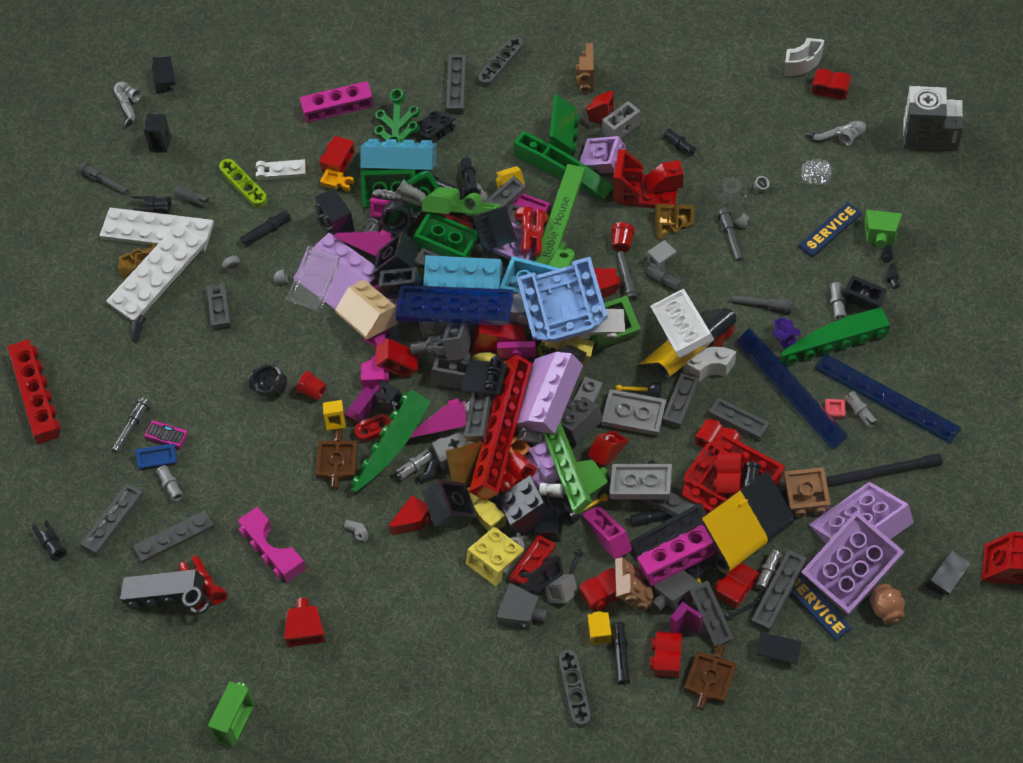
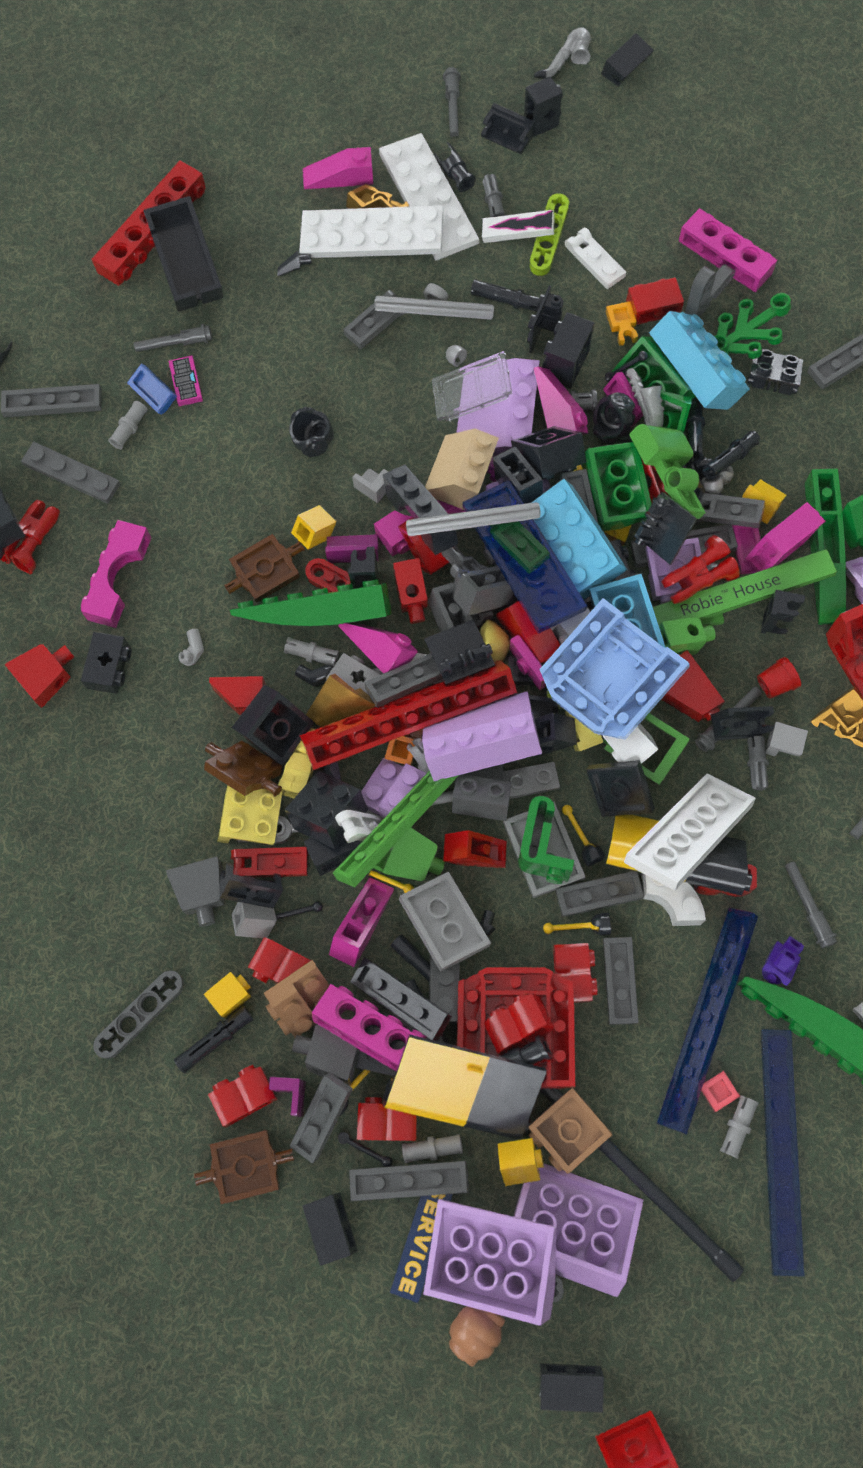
camera: 55 degrees right, 15 degrees up
(82, 379) = (183, 253): none -> black piece
(96, 263) = (342, 169): none -> dark pink slope
(151, 161) = (508, 128): none -> black hinge
(224, 194) = (518, 226): none -> tile
(240, 269) = (434, 307): none -> light grey axle
(301, 213) = (548, 315): none -> black hinge
(311, 386) = (336, 478): red piece -> none
(328, 582) = (102, 650): none -> black brick
(331, 370) = (370, 484): none -> light grey panel
(356, 122) = (706, 287): none -> dark grey beam
(365, 208) = (643, 355): none -> black hinge
(396, 338) = (409, 493): none -> black arch
(416, 310) = (473, 519): none -> light grey axle
(420, 382) = (410, 581): none -> red torso
(445, 299) = (520, 544): none -> dark green hinge
(463, 538) = (243, 768): none -> reddish brown plate
(517, 469) = (364, 770): red brick -> none
(544, 181) = (785, 538): none -> dark pink window
(582, 210) = (783, 607): none -> black hinge
(629, 347) = (620, 788): none -> black plate
(631, 405) = (554, 868): none -> green piece
(635, 268) = (741, 722): none -> black hinge
(699, 409) = (599, 924): none -> hinge
(807, 526) = (520, 1161): none -> yellow brick

